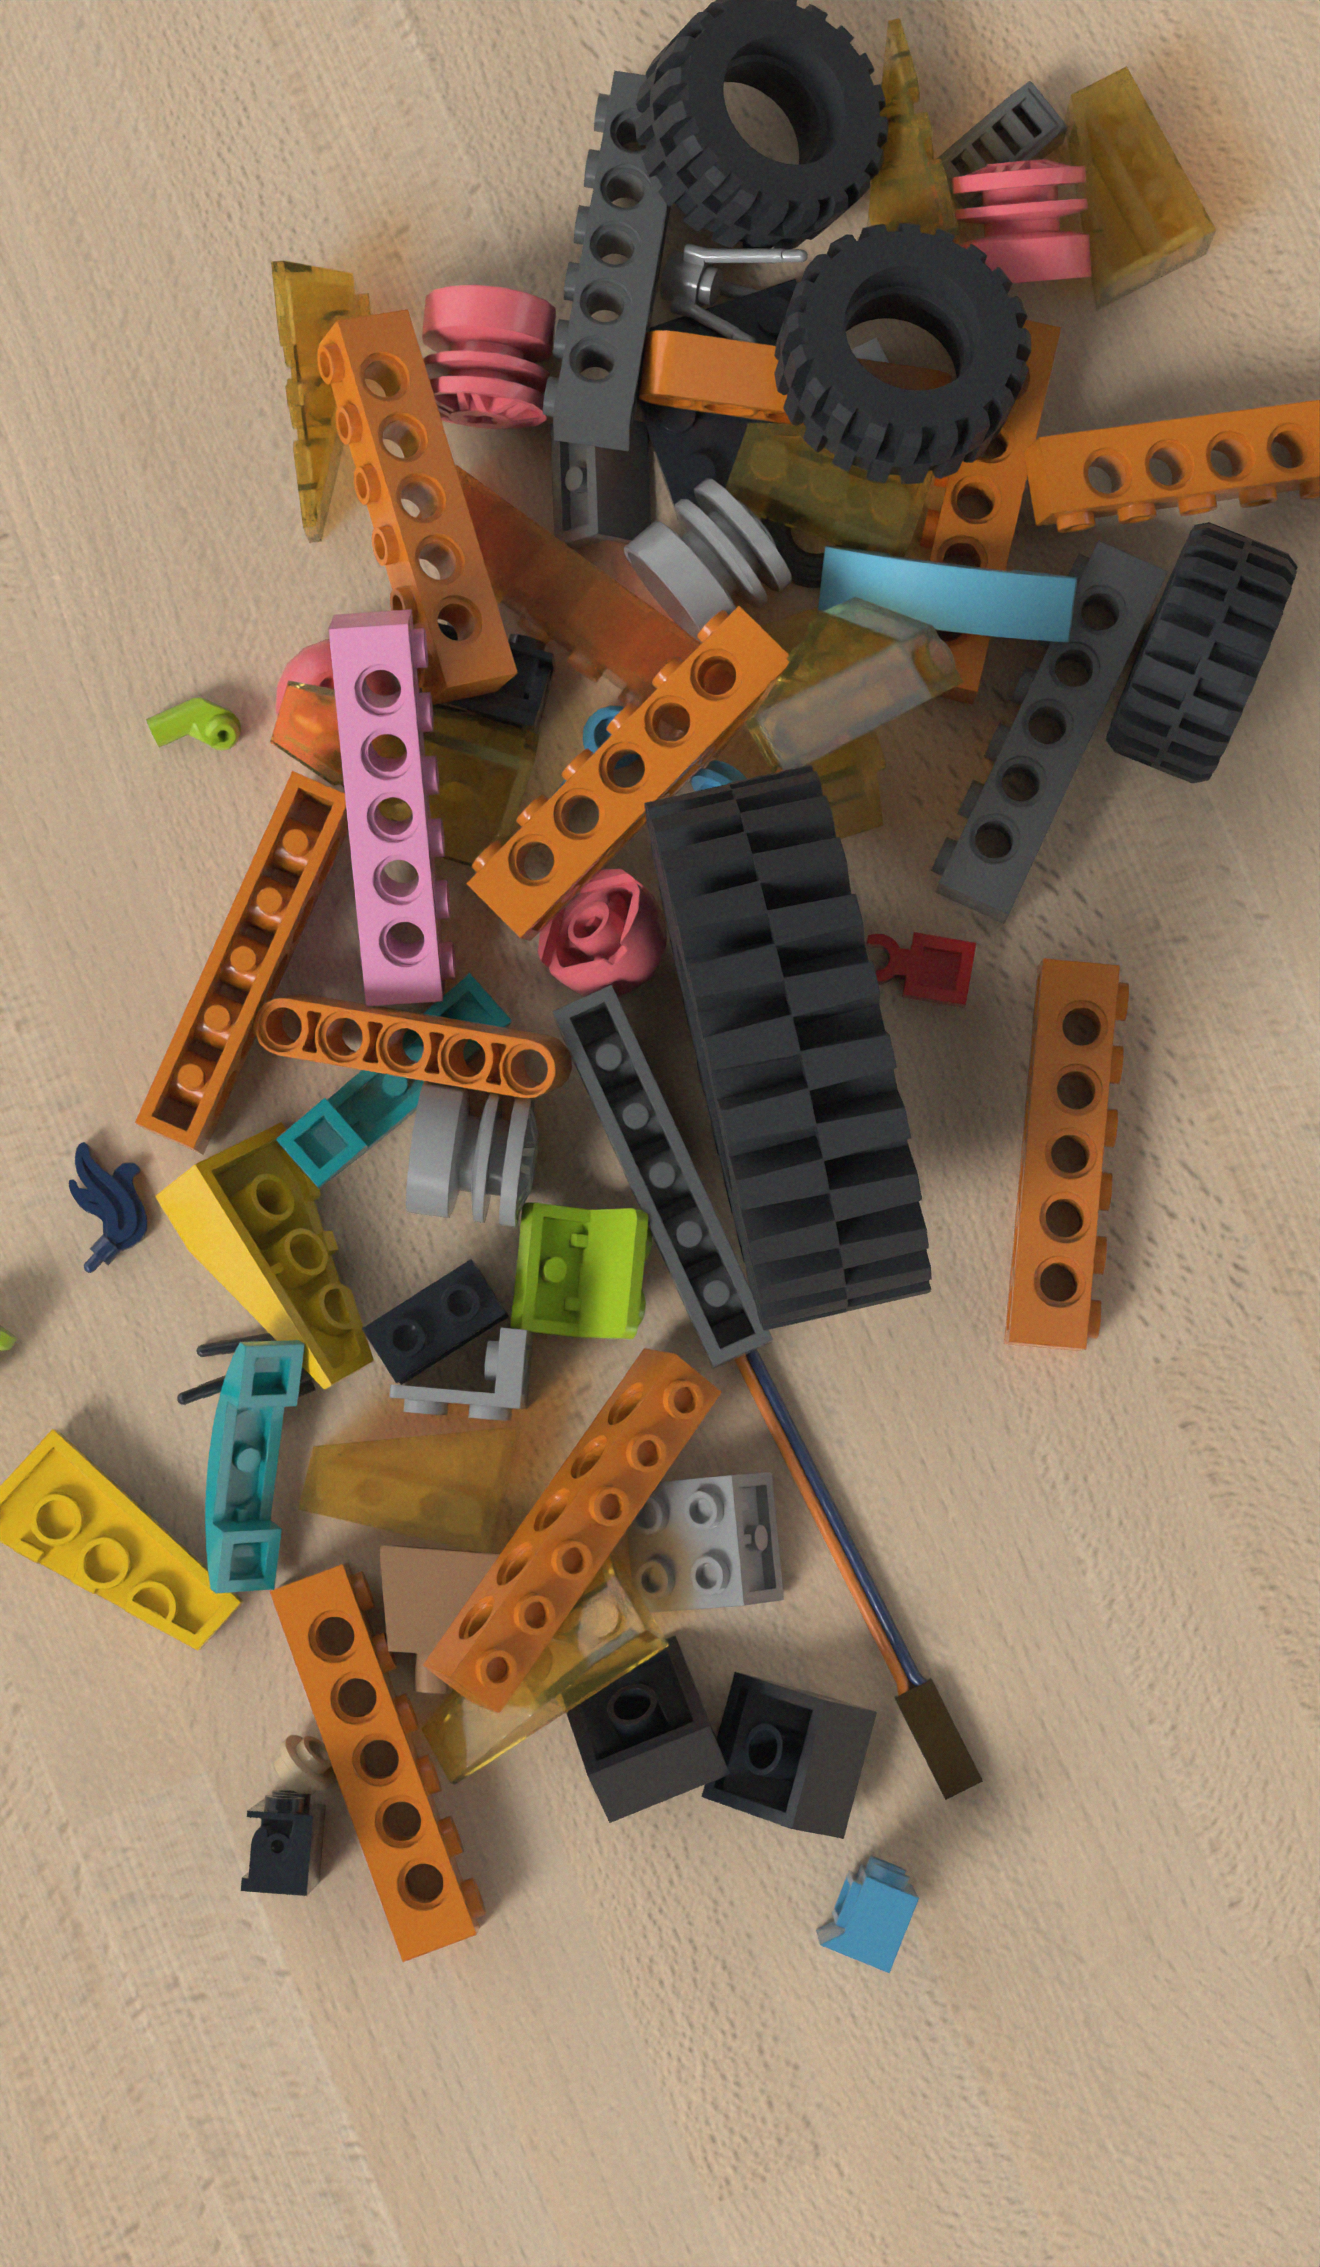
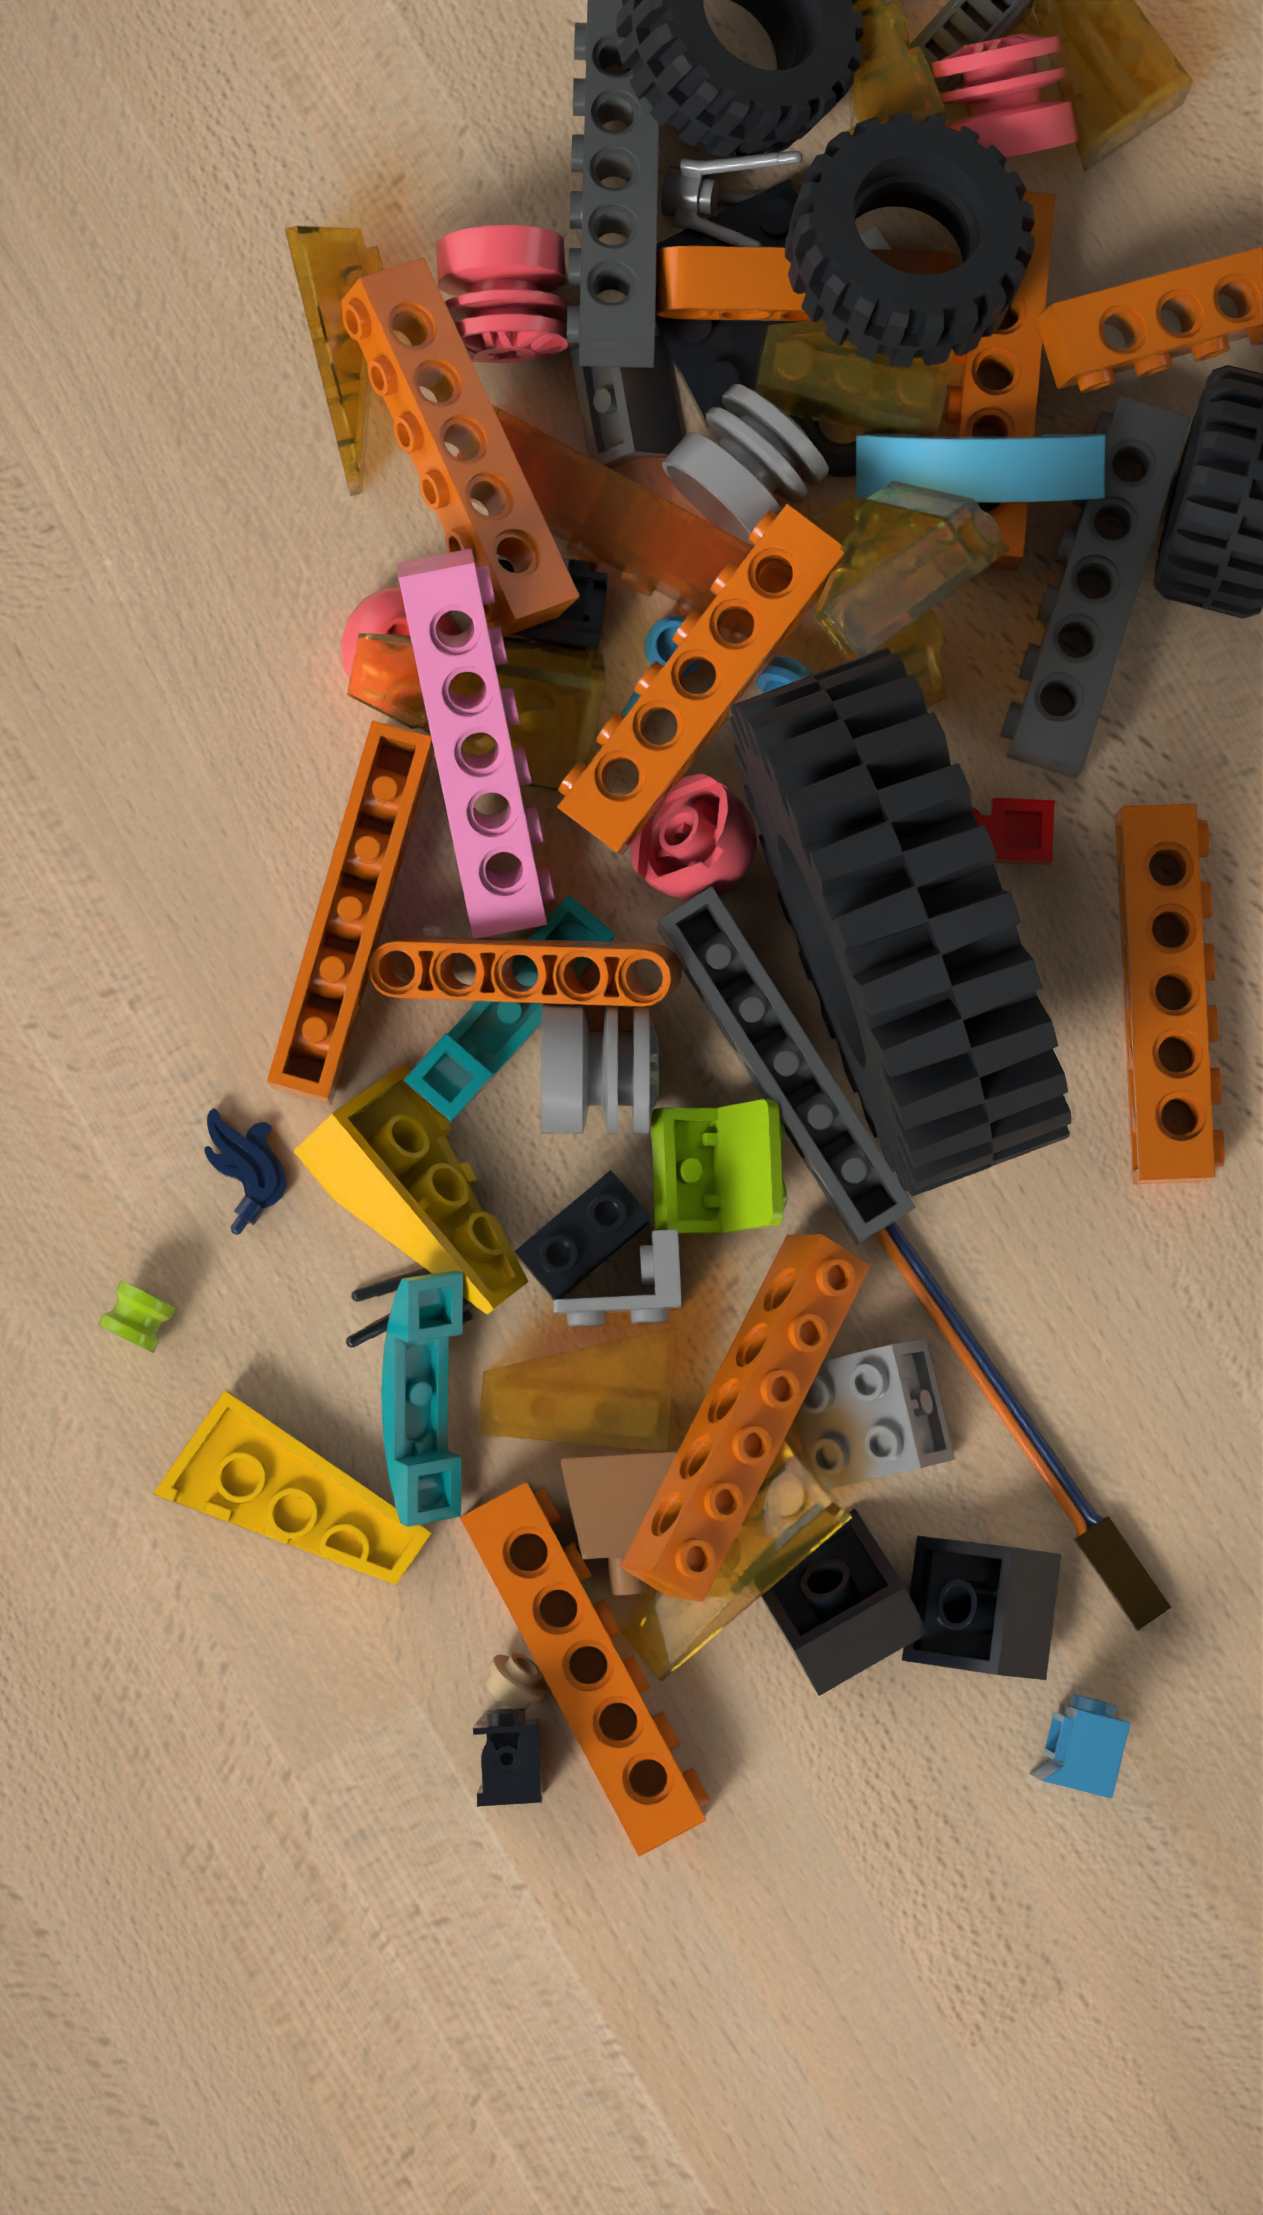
camera: 20 degrees left, 0 degrees up
(199, 719) = (267, 682): lime arm -> none

